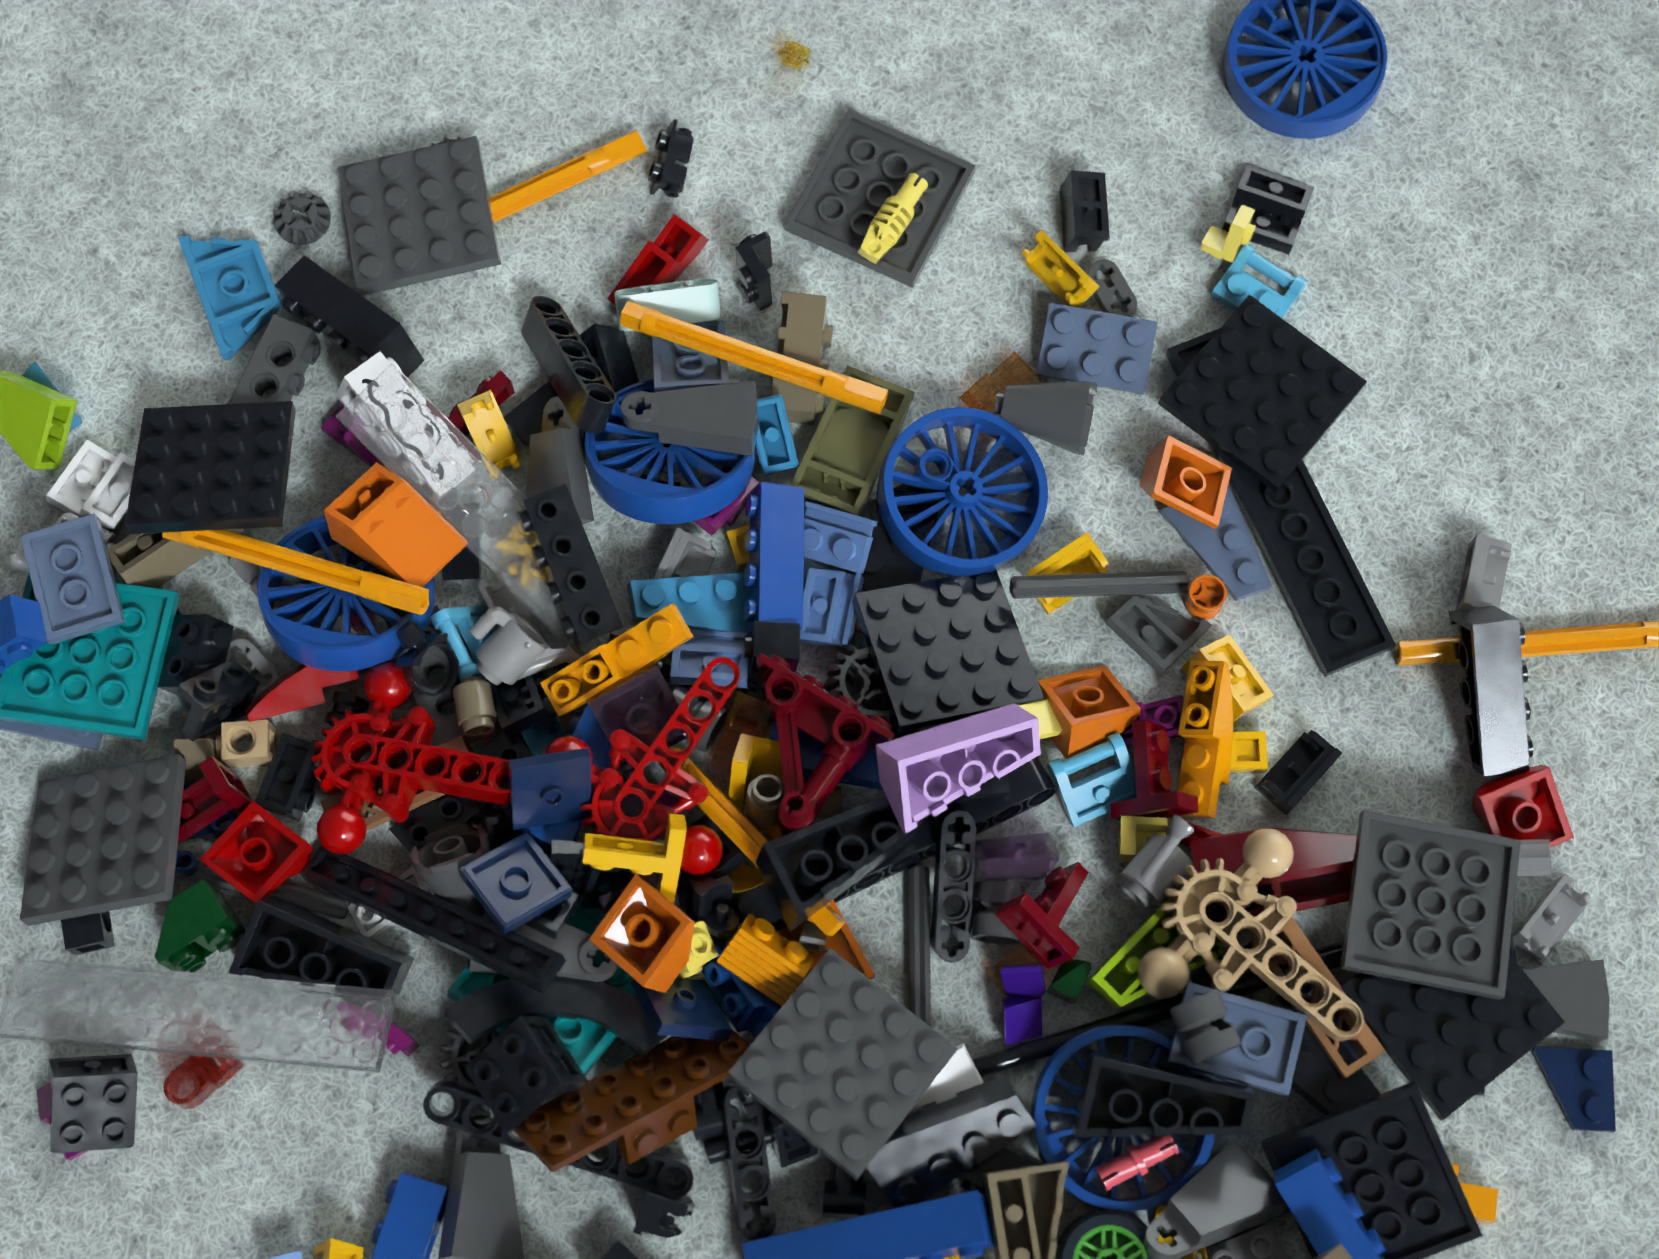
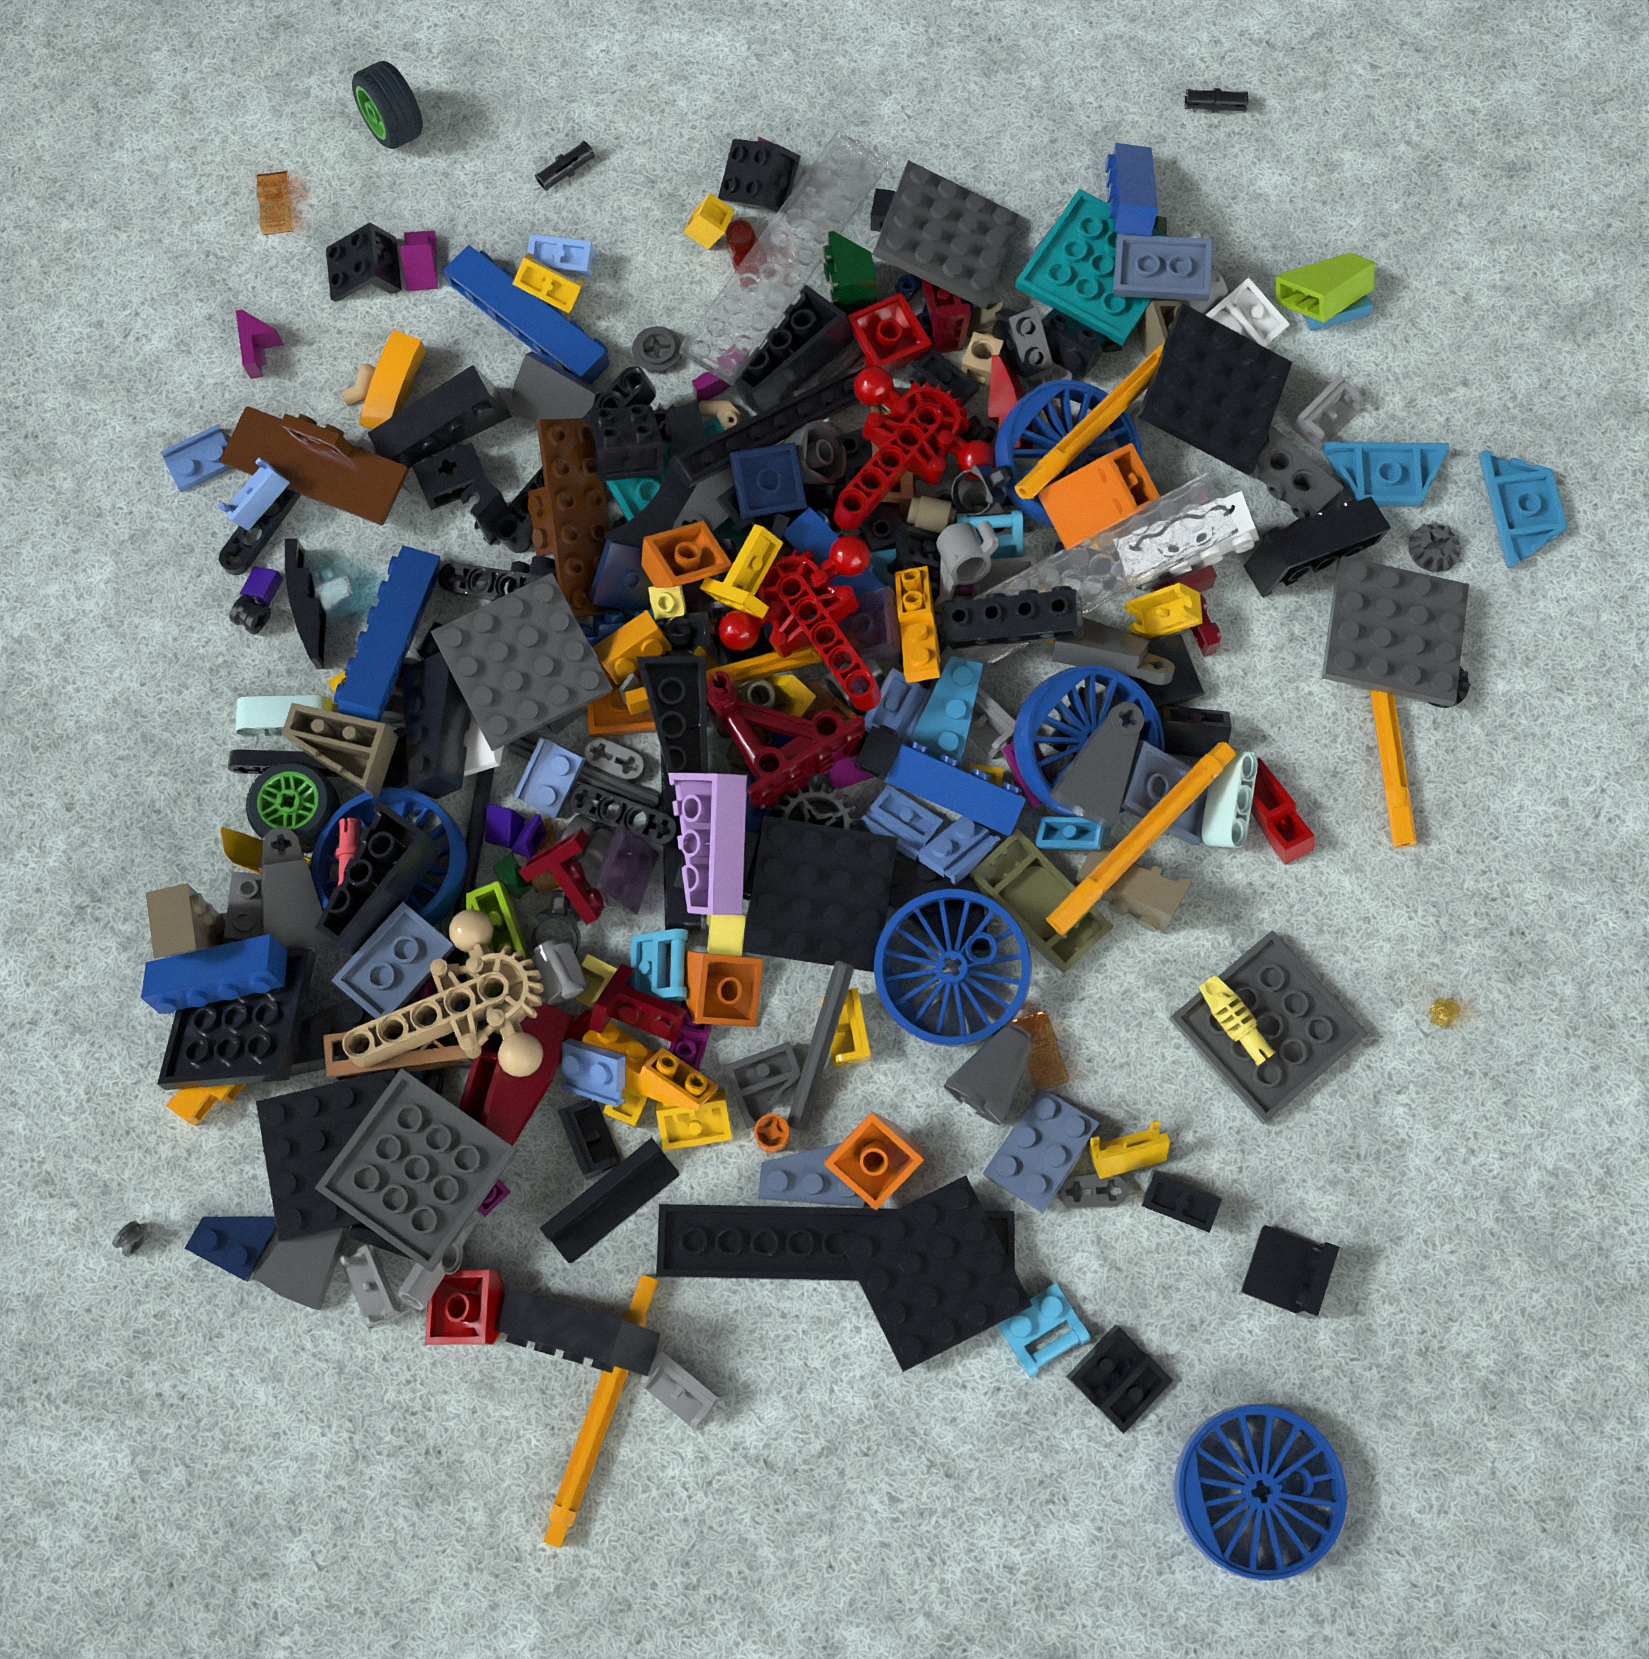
camera: 115 degrees right, 0 degrees up
(176, 1132) = (708, 221): none -> yellow brick
(182, 367) = (1328, 413): none -> light grey hinge
(223, 150) = (1523, 505): none -> dark azure wing
(350, 1120) = (644, 344): none -> dark grey gear
(420, 1007) = (723, 410): none -> tan arm
(549, 788) = (829, 526): dark blue plate -> none
(568, 364) = (1188, 683): black beam -> none
(672, 146) = (1387, 868): black hinge -> none
(753, 260) = (1232, 875): black bracket -> none
(901, 936) = (617, 754): none -> light grey beam
(944, 992) = (549, 777): none -> medium blue plate
(1084, 910) = (560, 905): none -> black piece
(1101, 97) = (1289, 1272): none -> black bracket
(1205, 1027) = (419, 931): dark grey wheel -> none
(1226, 244) = (1100, 1317): light yellow bracket -> none
(1236, 791) = (593, 1072): none -> medium blue plate
(1346, 726) = (610, 1201): none -> black panel
(1637, 1193) = (130, 1238): none -> dark grey bush

